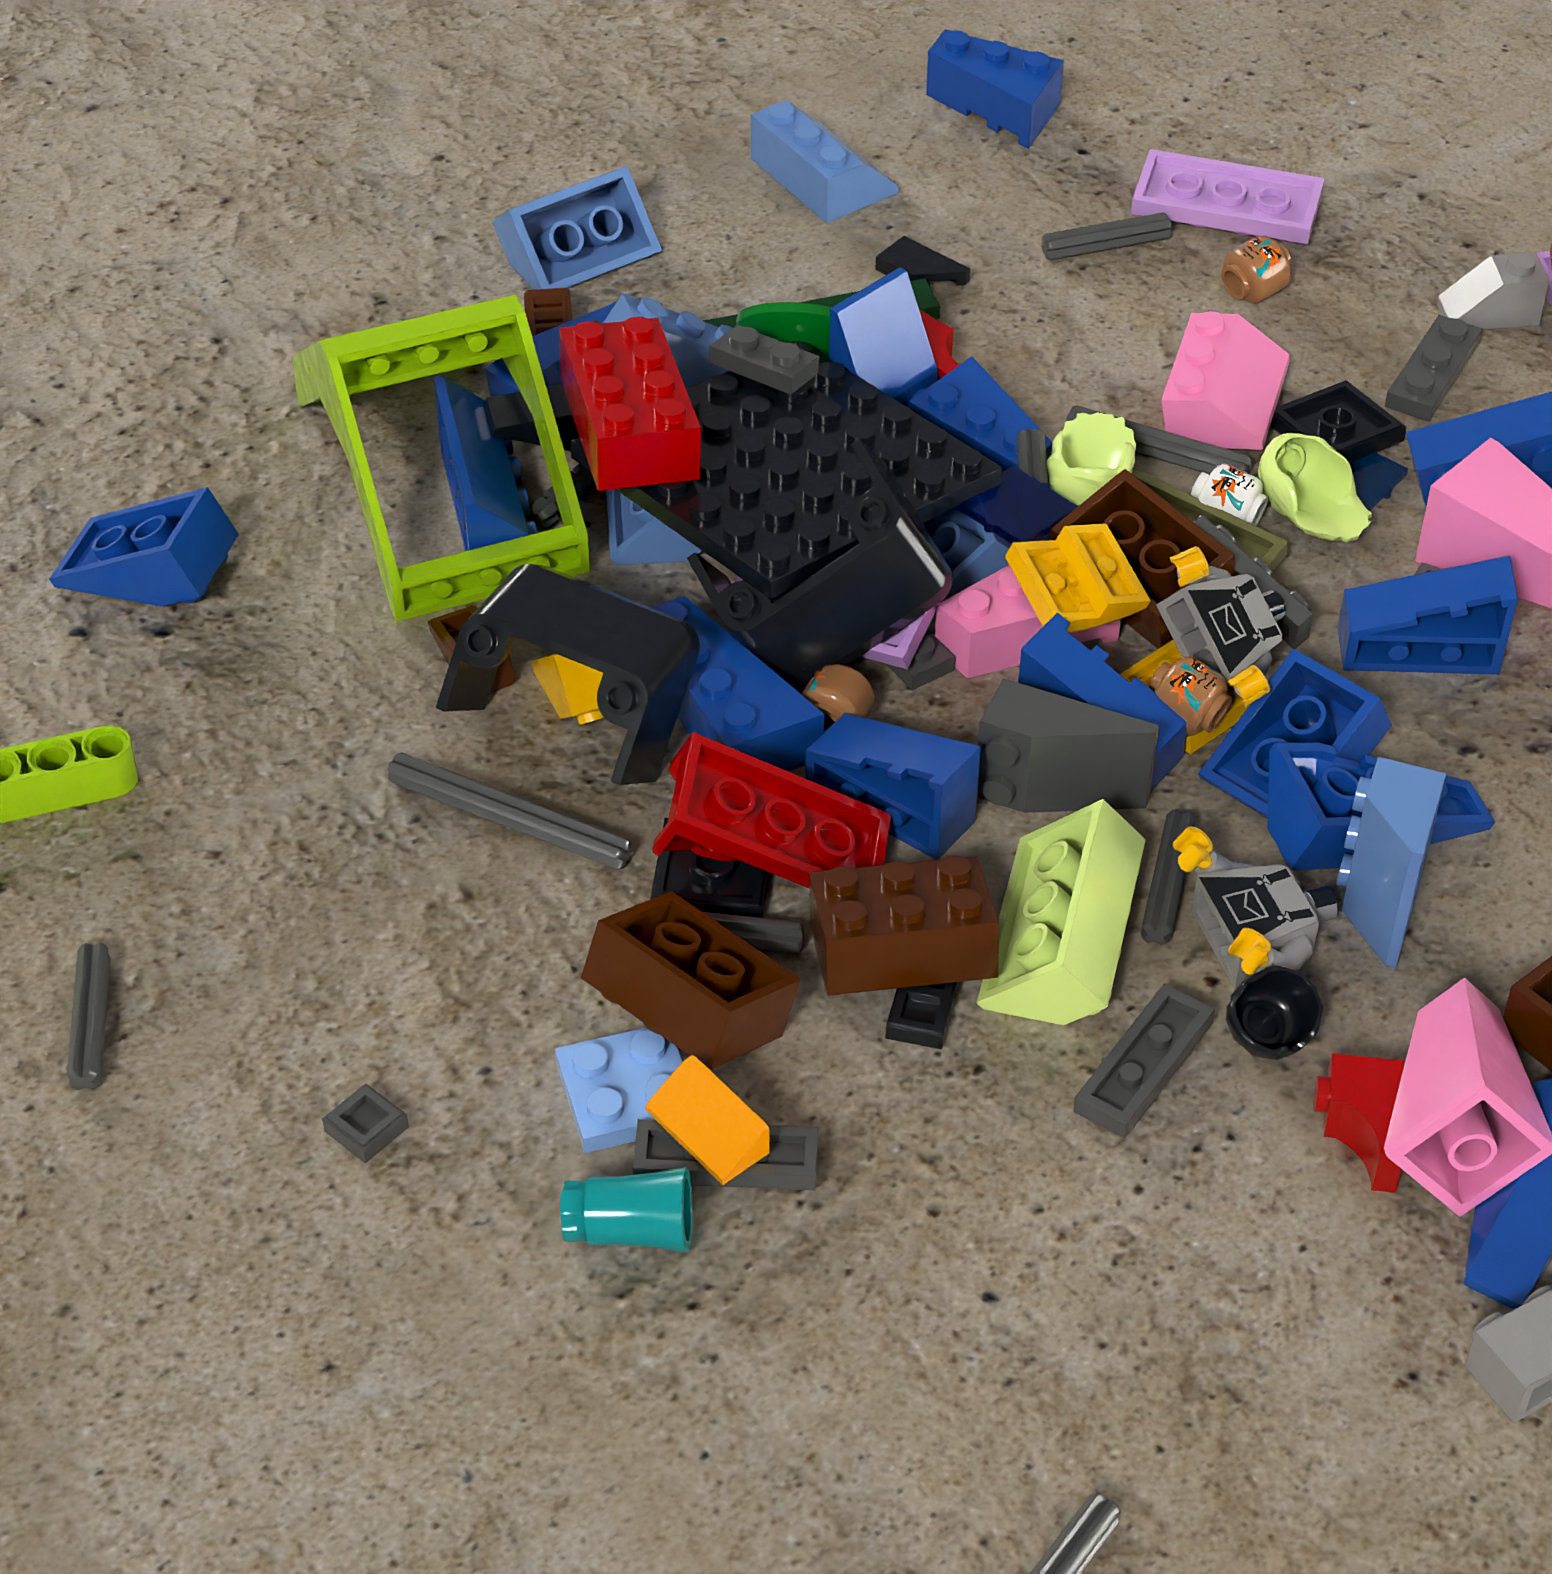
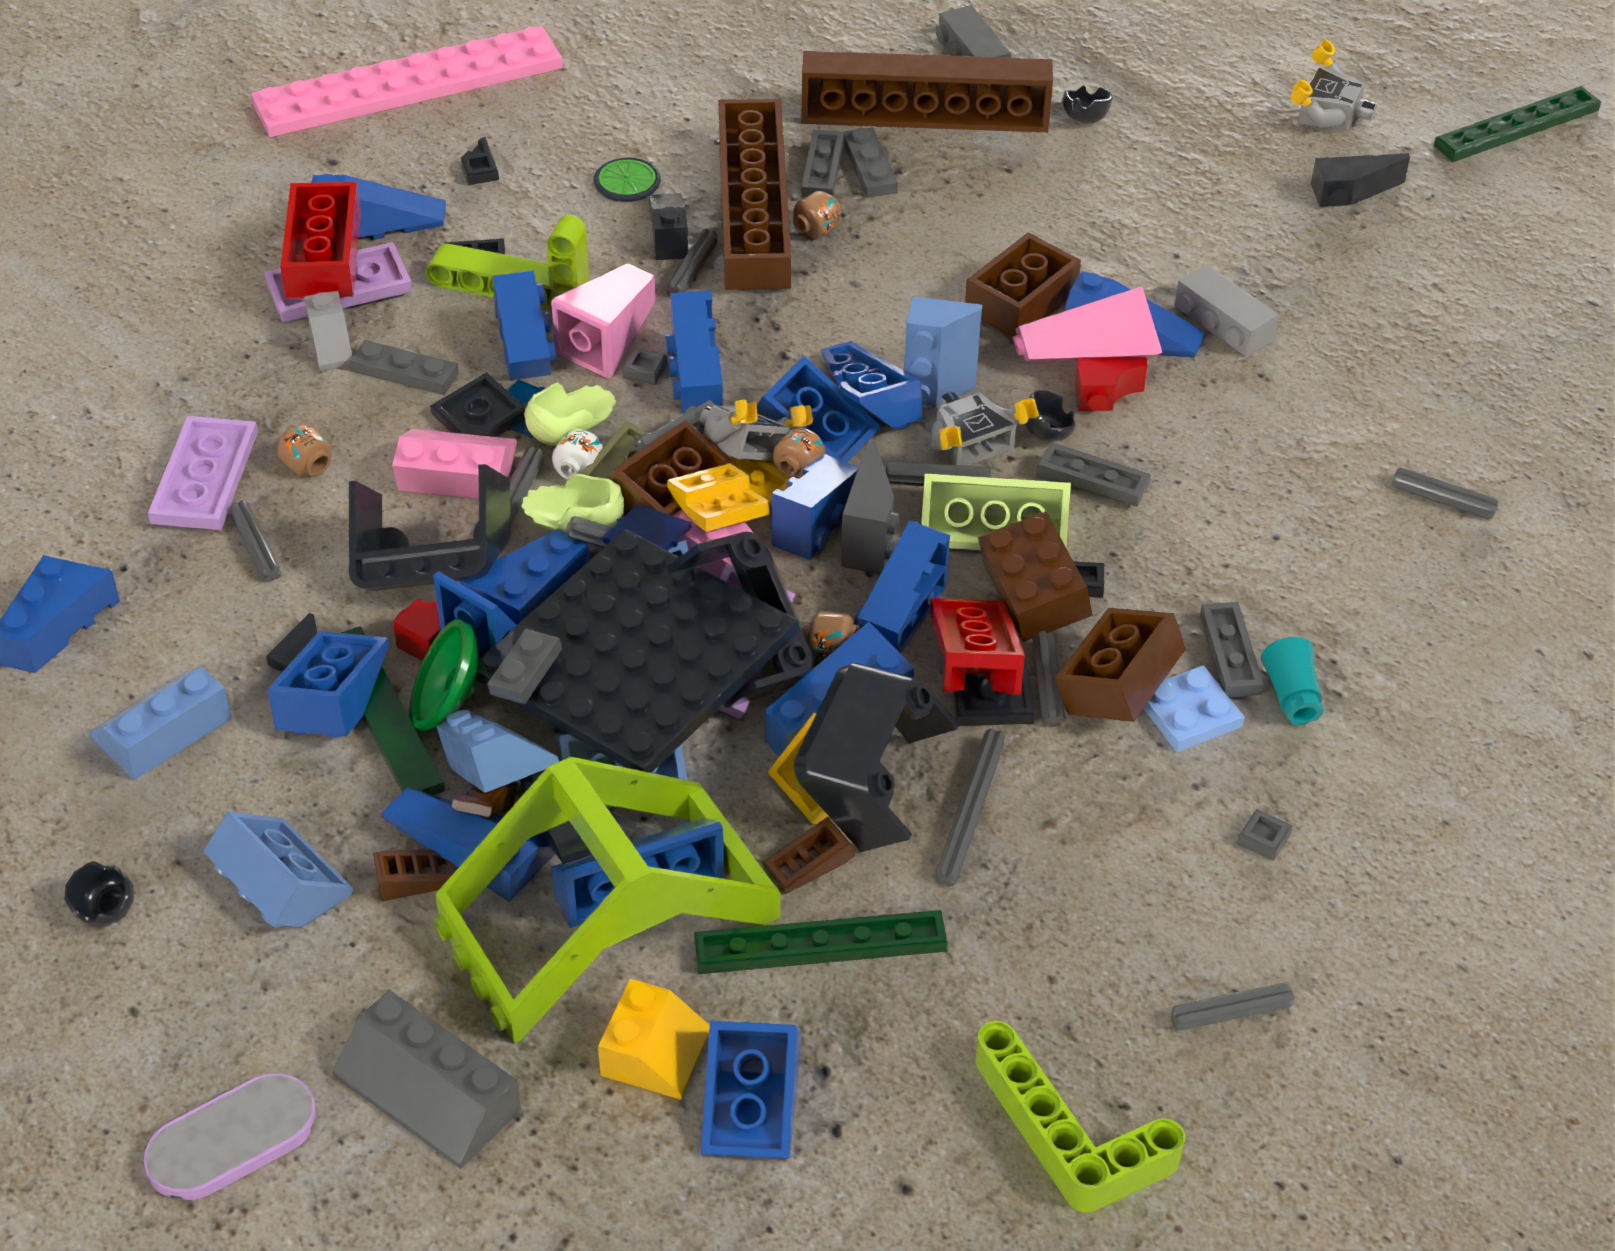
camera: 100 degrees left, 0 degrees up
(249, 474) = (652, 1040): none -> yellow slope
(254, 207) = (230, 1136): none -> flat silver tile
(265, 328) = (427, 1079): none -> dark grey slope
(338, 653) = (820, 942): none -> dark green tile
(574, 117) = (99, 894): none -> black hair
(629, 404) = (628, 710): red brick -> none
(709, 1121) = (1225, 644): light orange slope -> none
(825, 258) = (327, 684): none -> blue slope
(1044, 326) = (385, 561): none -> black windscreen

